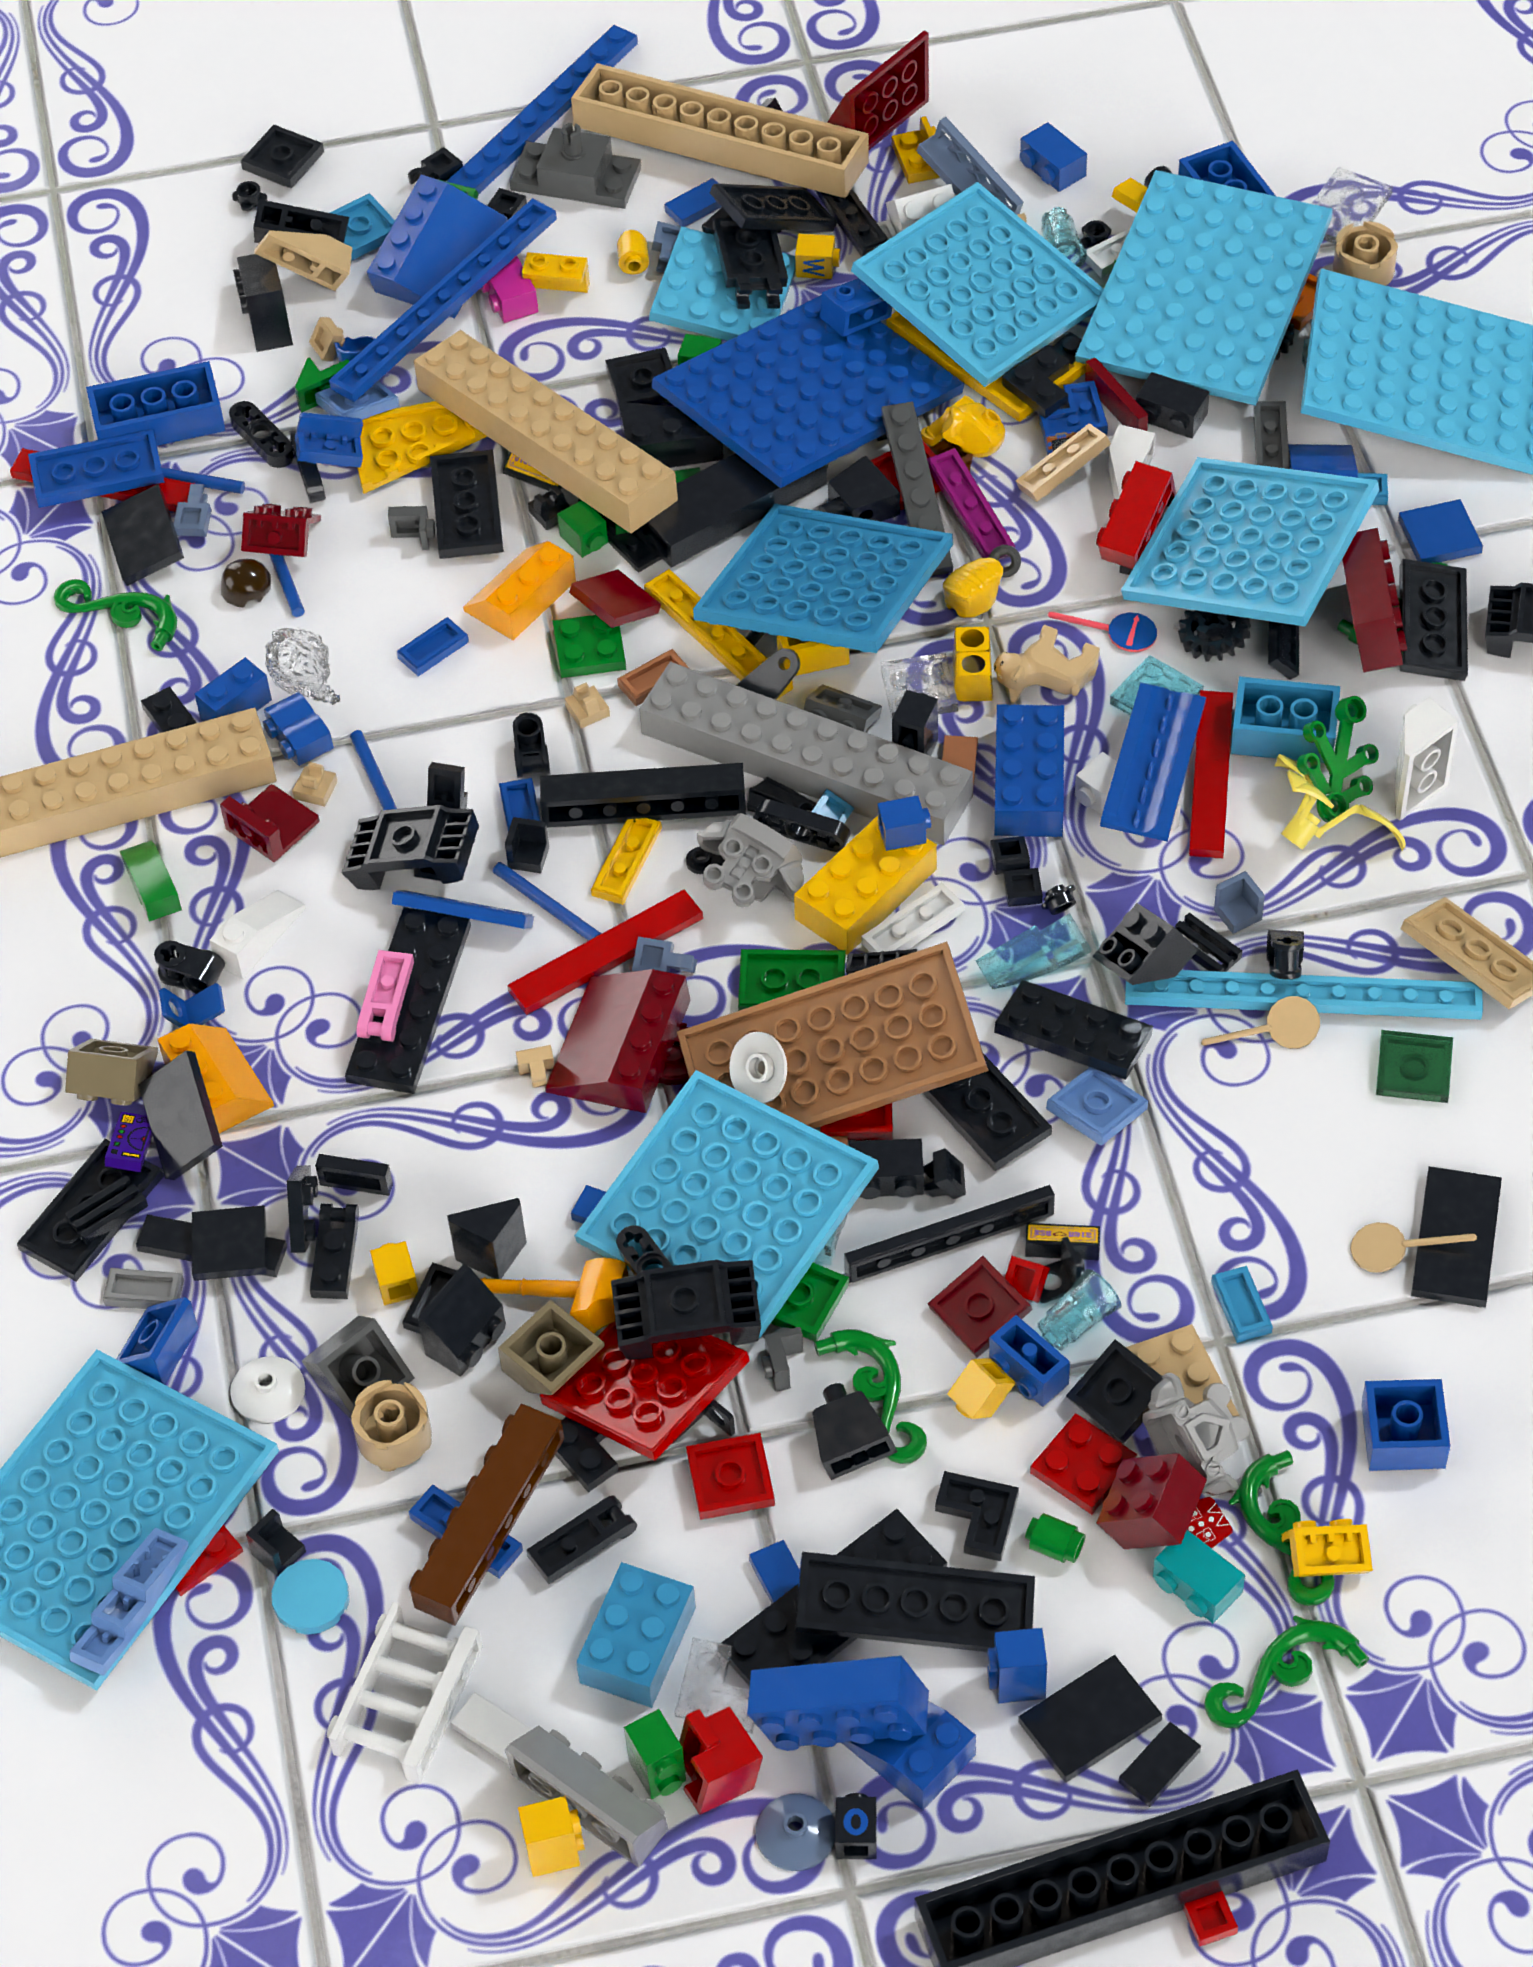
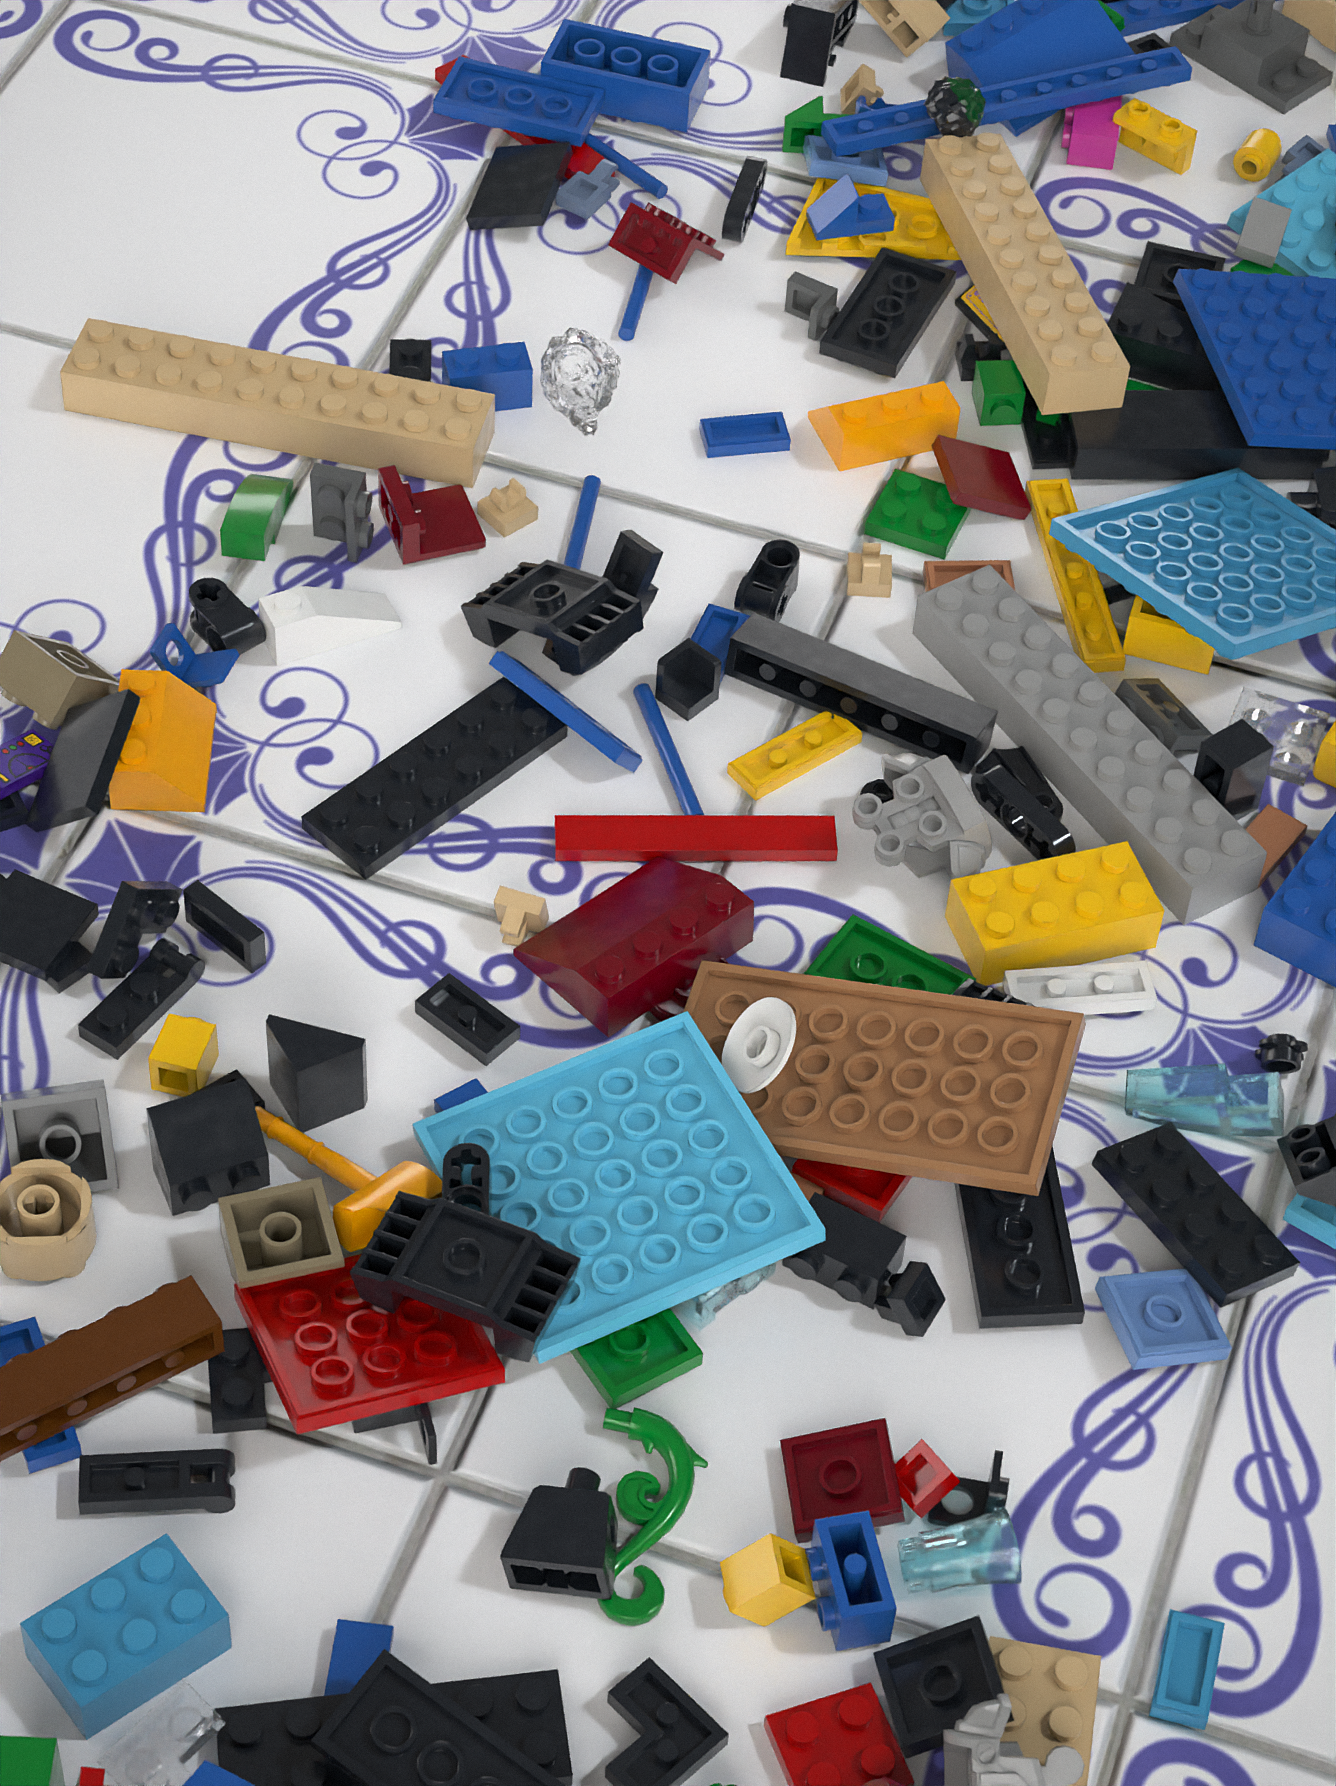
camera: 25 degrees right, 5 degrees down
(119, 607) = (445, 247): green plant -> none
(212, 844) = (341, 507): none -> dark grey bracket
(245, 581) = (591, 277): dark brown hair -> none
(259, 422) = (726, 140): black beam -> none
(298, 729) = (531, 443): blue brick -> none
(329, 440) = (779, 177): blue bracket -> none
(385, 995) = (403, 752): bright pink plate -> none
(392, 442) = (846, 214): none -> blue slope
(421, 326) = (955, 106): none -> black piece
(552, 1150) = (467, 1019): none -> black plate
(660, 956) = (751, 874): sand blue plate -> none
(683, 317) = (1262, 232): none -> light grey tile
(730, 1476) = (386, 1510): red plate -> none
(771, 676) = (1101, 636): black piece -> none
(777, 1347) = (555, 1387): dark grey bracket -> none
(833, 807) = (1075, 815): dark azure tile -> none
(903, 822) = (1134, 861): blue brick -> none
(949, 1234) = (867, 1371): black tile -> none
(1009, 854) = (1253, 973): black brick -> none
(1023, 887) = (1245, 1017): black plate -> none
(1046, 1239) = (1029, 1471): slope -> none

